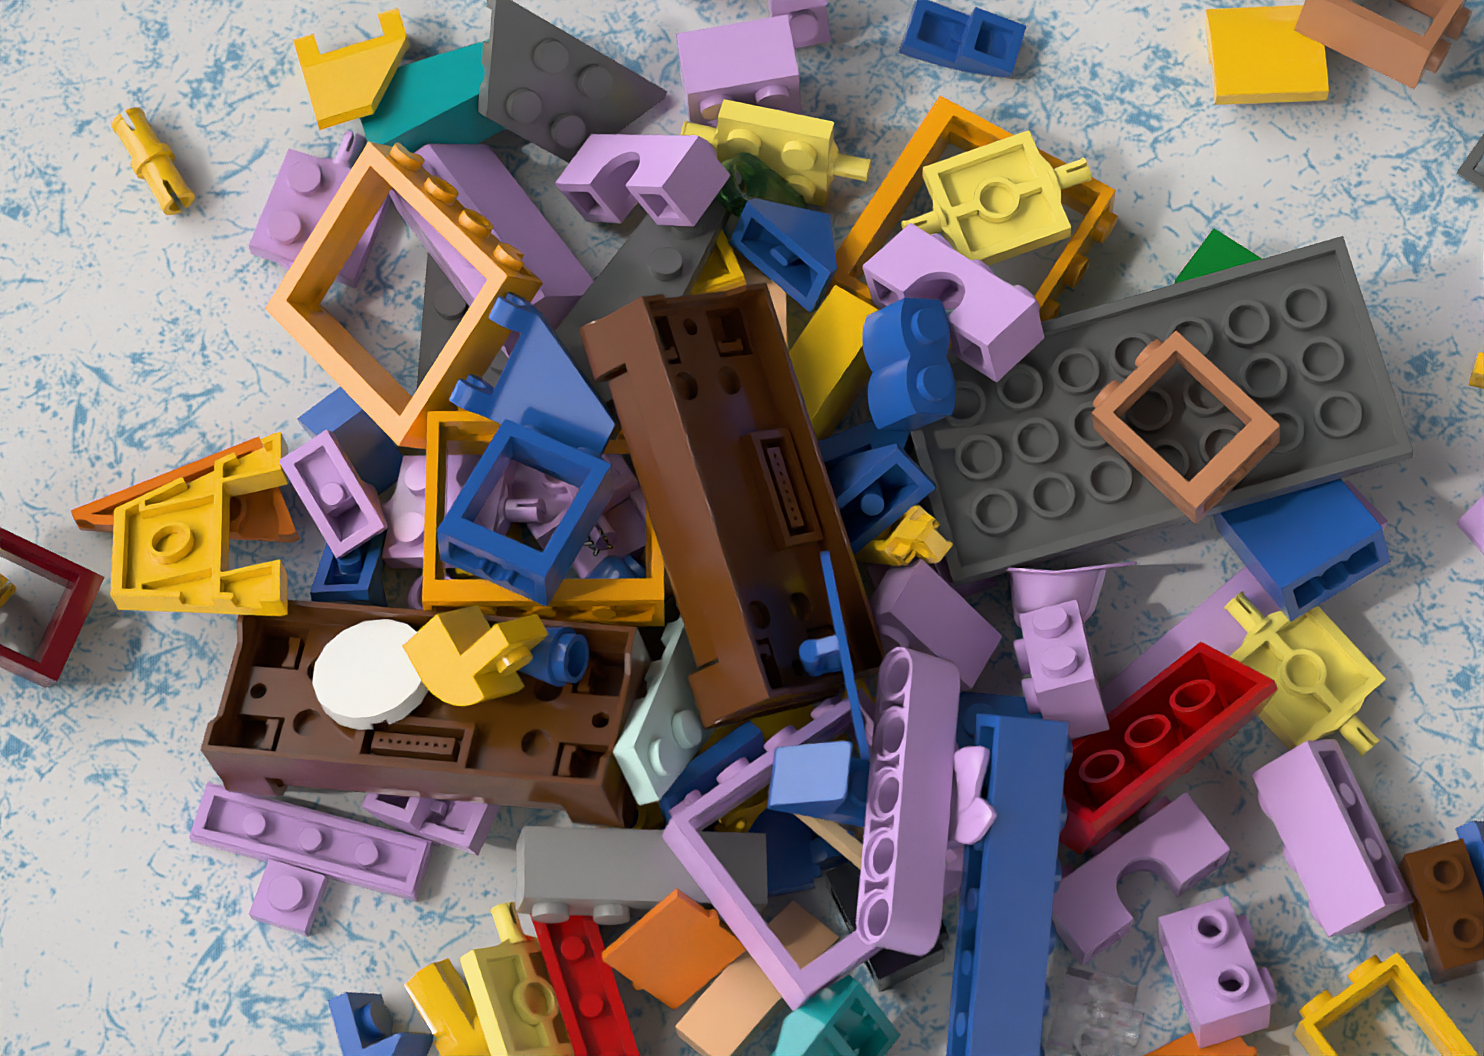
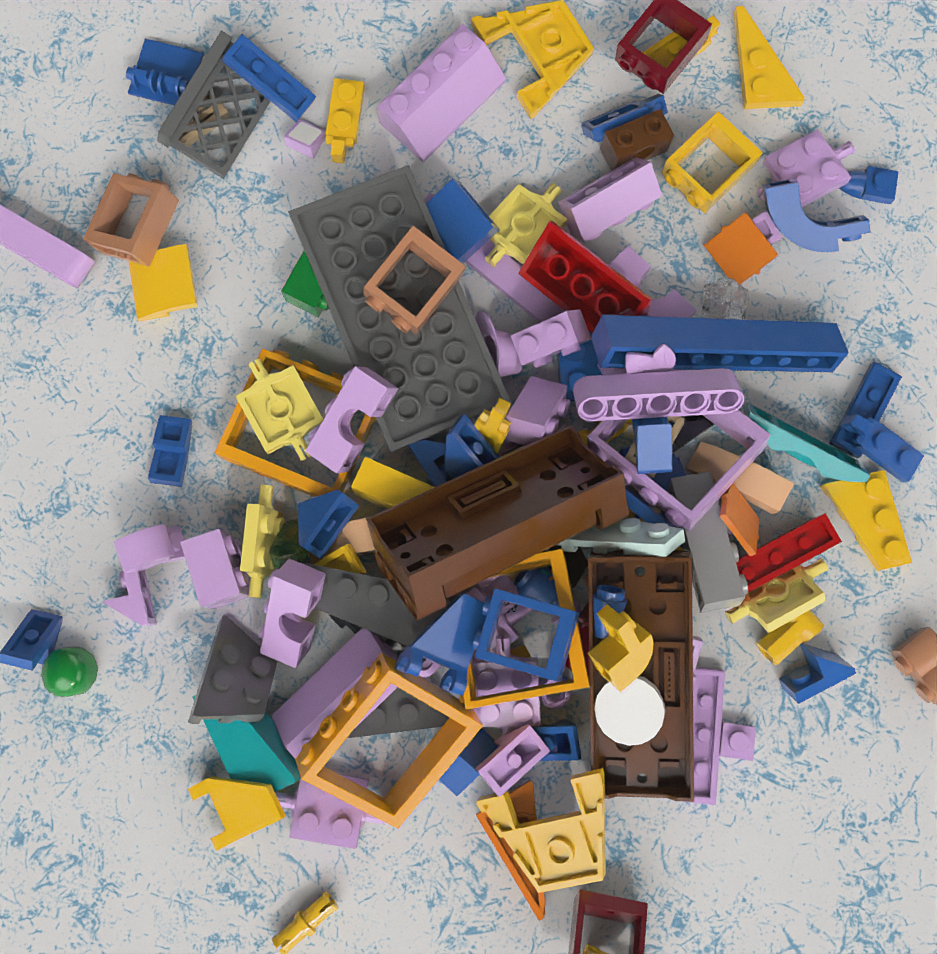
camera: 110 degrees left, 10 degrees up
(833, 655) = (581, 443): blue shield -> none
(909, 364) = (398, 435): blue brick -> none
(1215, 971) = (689, 247): lavender brick -> none

